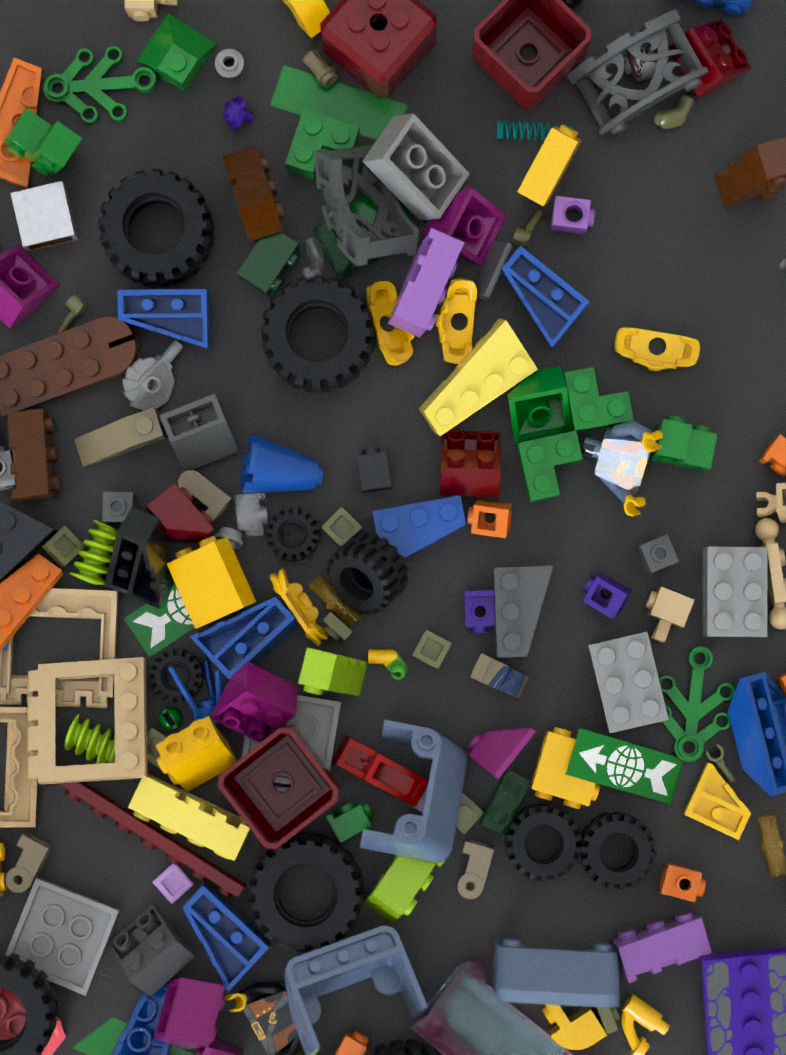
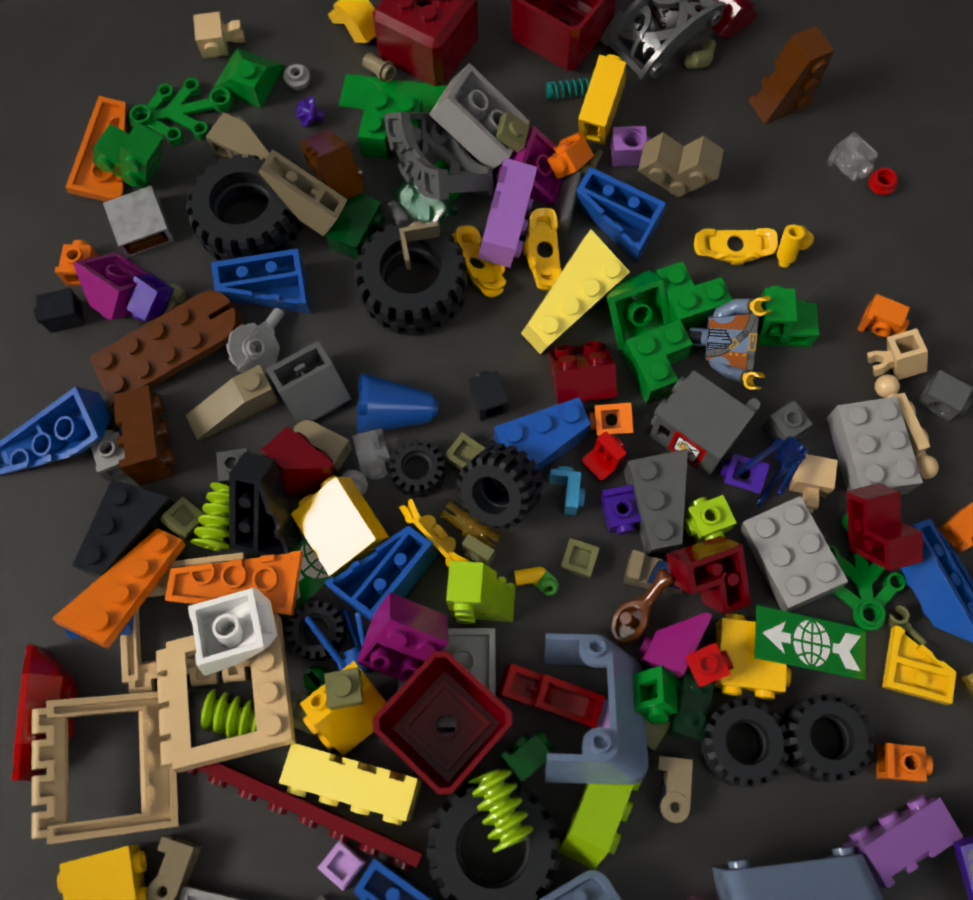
camera: 10 degrees left, 15 degrees down
(50, 309) = (149, 297): none -> dark purple brick
(103, 668) = (231, 629): none -> white slope
(120, 625) = (271, 574): none -> orange wing
(156, 138) = (234, 137): none -> dark tan slope
(196, 743) = (344, 689): none -> olive plate
(220, 233) = (302, 193): none -> dark tan slope
(317, 865) = (501, 808): none -> lime piece
(326, 298) = (417, 231): none -> dark tan bracket
(438, 587) = (574, 494): none -> dark azure bracket
(446, 192) = (512, 131): none -> olive plate
(470, 712) = (633, 616): none -> reddish brown piece
(472, 789) = (655, 694): none -> green brick
(474, 555) = (605, 457): none -> red bracket
(504, 220) = (570, 155): none -> orange brick
(523, 775) = (710, 665): none -> red bracket
(550, 685) = (714, 569): none -> dark red brick
(570, 635) = (708, 518): none -> lime brick
(573, 540) = (701, 420): none -> dark grey container
(615, 256) = (678, 166): none -> dark tan brick
(647, 589) = (789, 454): none -> clear blue plant
(711, 358) = (793, 239): none -> yellow plant
(712, 675) = (877, 528): none -> dark red brick

